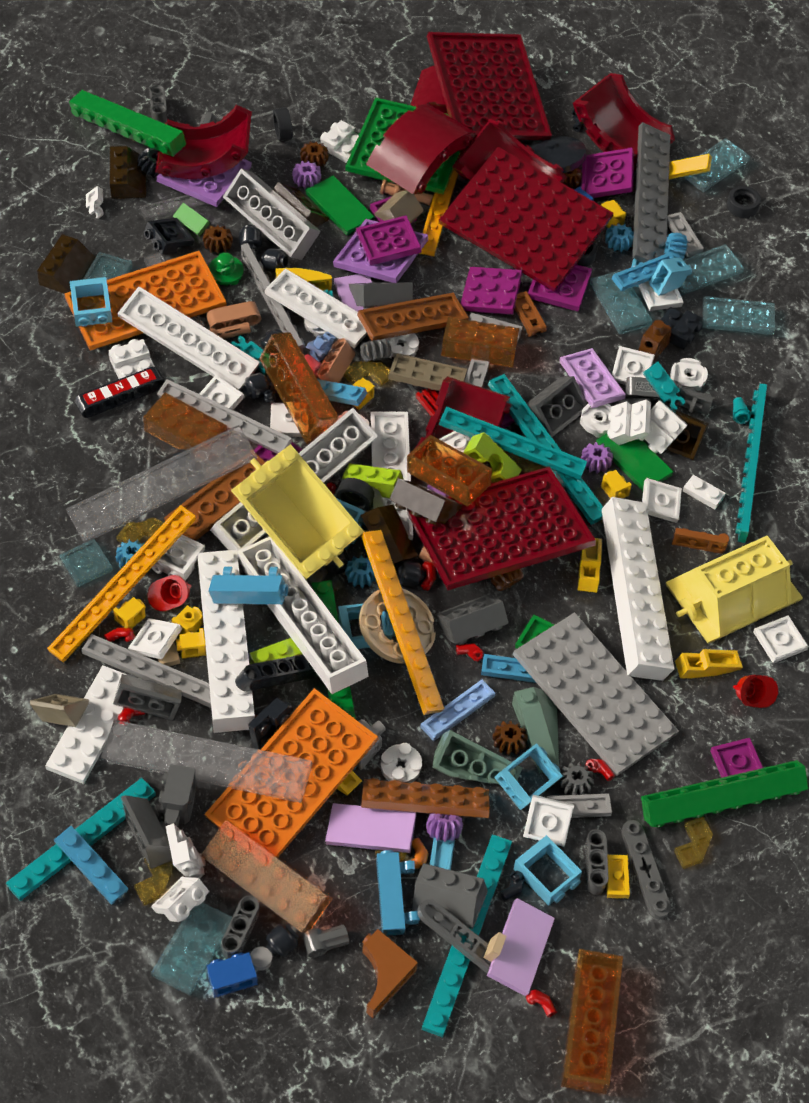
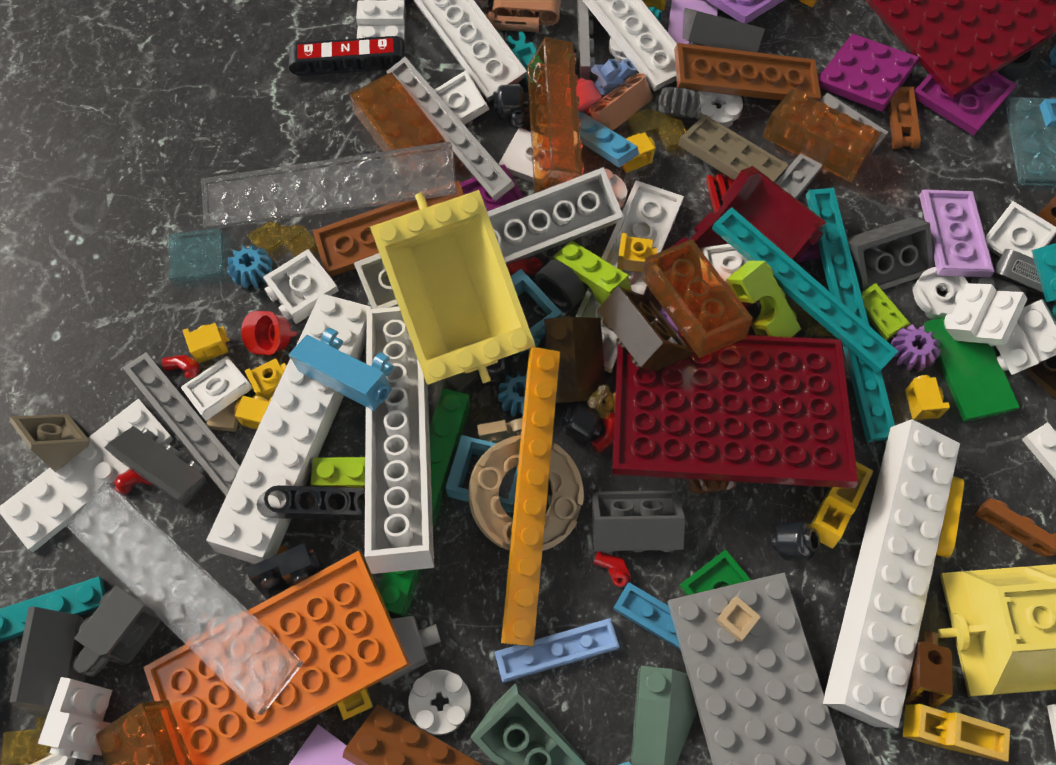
camera: 30 degrees right, 10 degrees up
(121, 584) = (210, 299): light orange plate -> none
(360, 595) = (499, 430): none -> tan plate
(394, 457) = (633, 253): none -> yellow brick
(414, 556) = (596, 398): none -> clear yellow plate
(515, 742) = (603, 719): reddish brown gear -> none
(558, 644) = (738, 618): none -> tan tile
(568, 442) = (883, 312): none -> lime plate
(573, 594) = (796, 541): none -> black head
(658, 549) = (951, 519): none -> yellow beam
(662, 500) = (986, 444): white plate -> none
(680, 630) = (930, 673): none -> reddish brown torso

